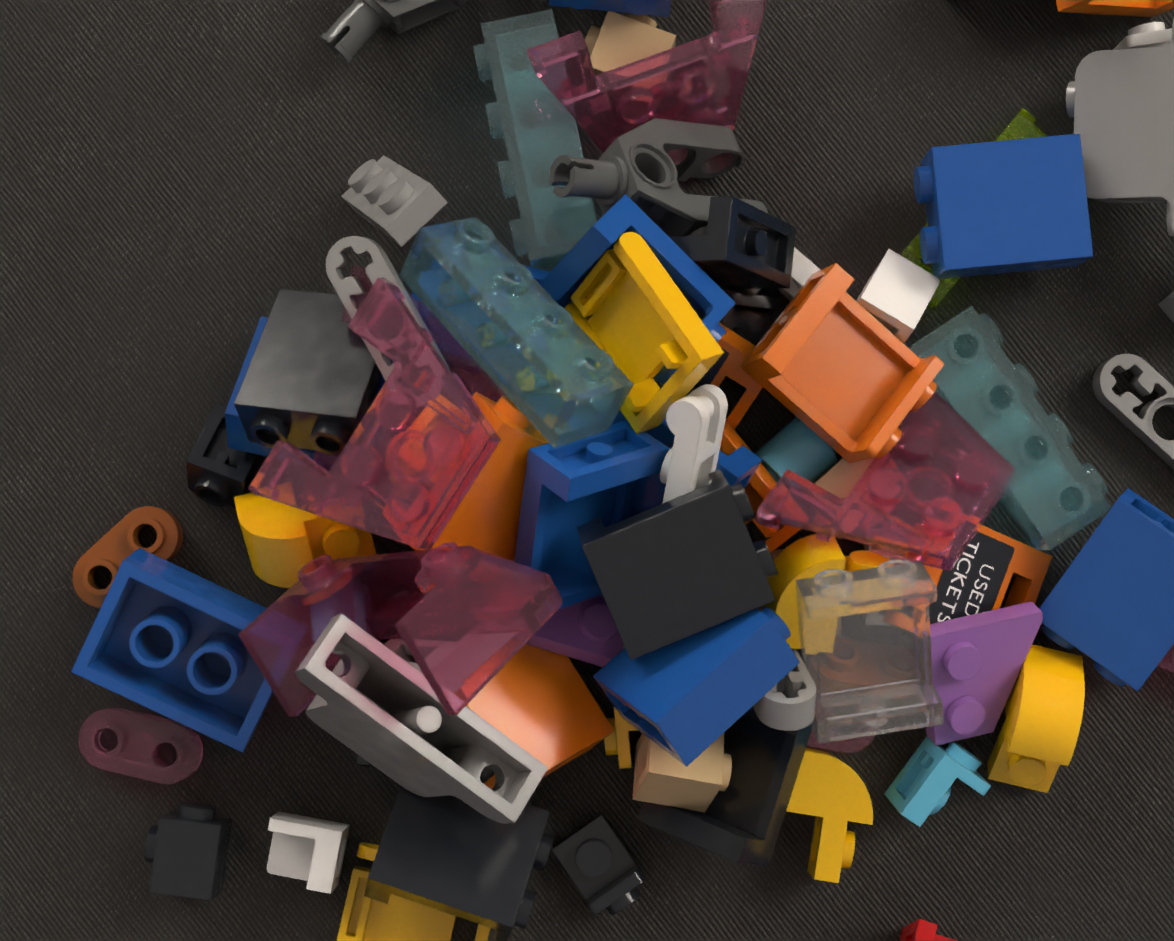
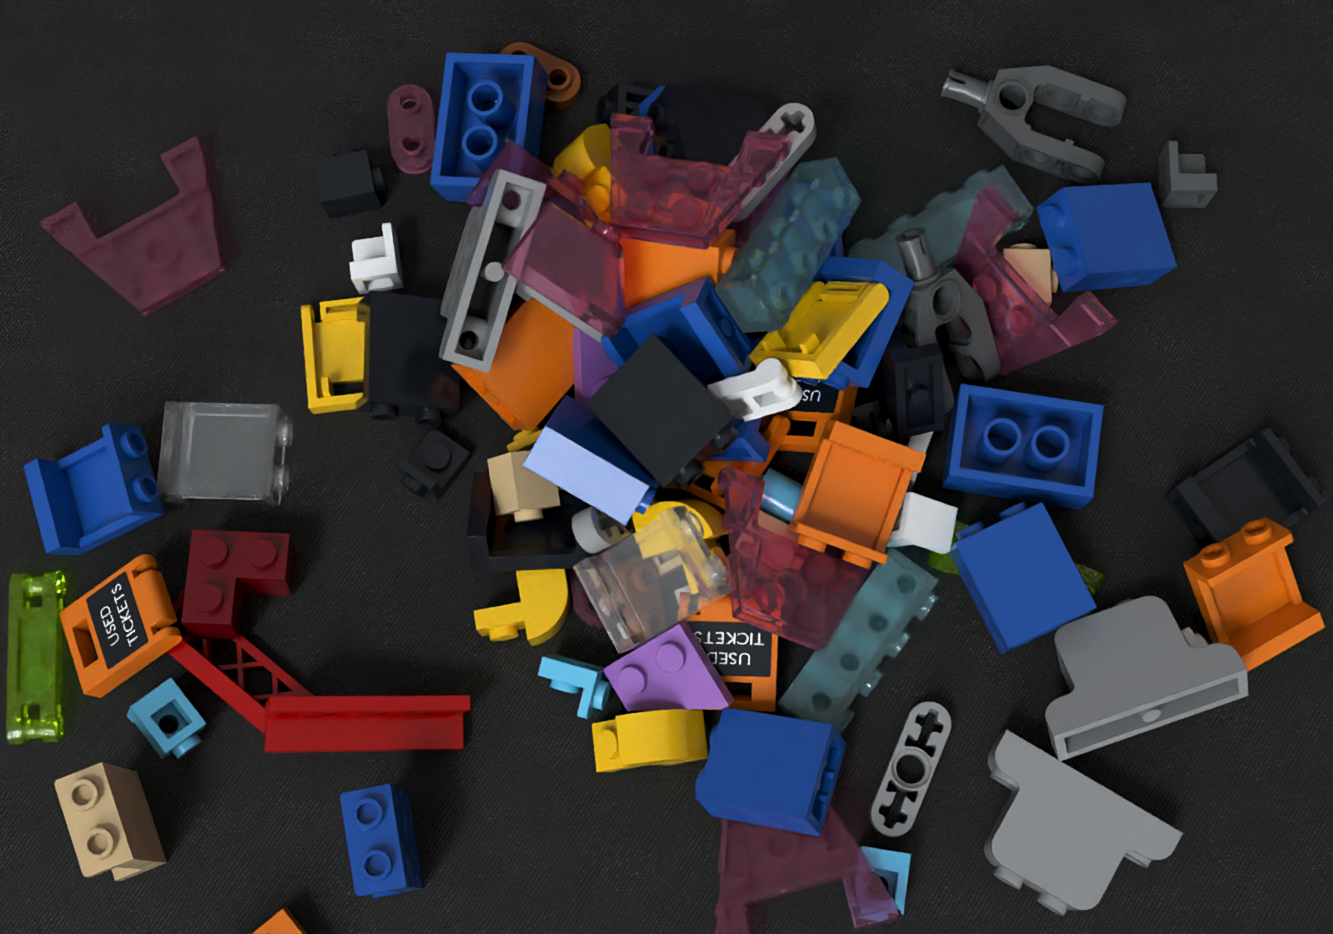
camera: 70 degrees right, 10 degrees down
(392, 198) = (853, 145): light grey plate -> none
(842, 141) = (1022, 446): none -> blue brick

